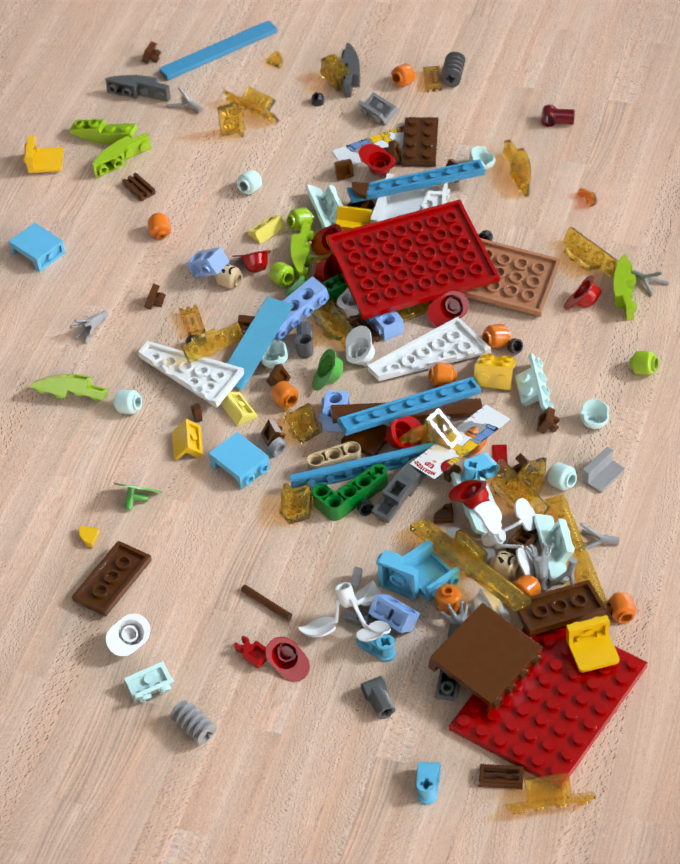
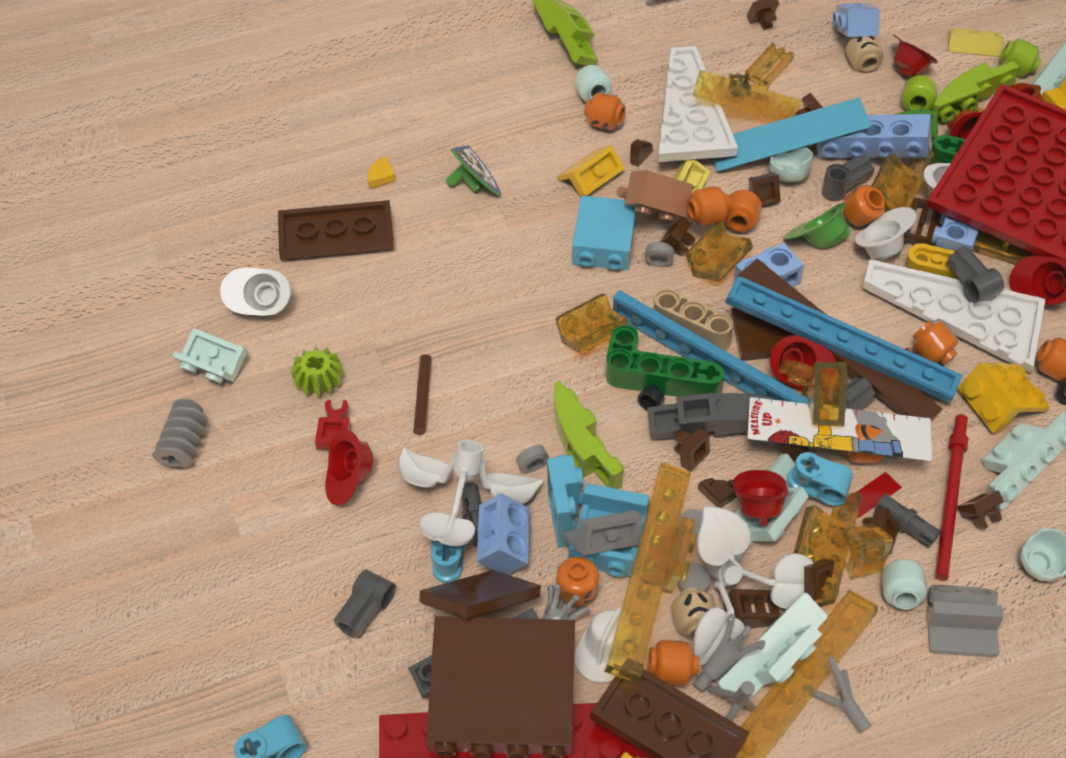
camera: 50 degrees right, 5 degrees up
(154, 408) = (605, 111): none -> orange head
(208, 639) = (317, 371): none -> lime gear
(245, 420) = (656, 194): none -> nougat brick
(274, 403) = (708, 206): none -> orange head
(334, 340) = (864, 205): none -> orange head
(355, 549) = (577, 433): none -> lime slope
(392, 341) = (930, 260): none -> yellow plate
(410, 508) = (692, 447): none -> reddish brown tile
(425, 638) = (479, 594): none -> reddish brown tile
(427, 332) = (977, 279): none -> dark grey piece
(435, 571) = (606, 532): none -> light grey panel
(505, 407) = (958, 446): none -> red bar
(529, 452) = (909, 521): none -> dark grey pin
(529, 501) = (816, 576): none -> reddish brown tile
(585, 459) = (962, 594): none -> light grey plate

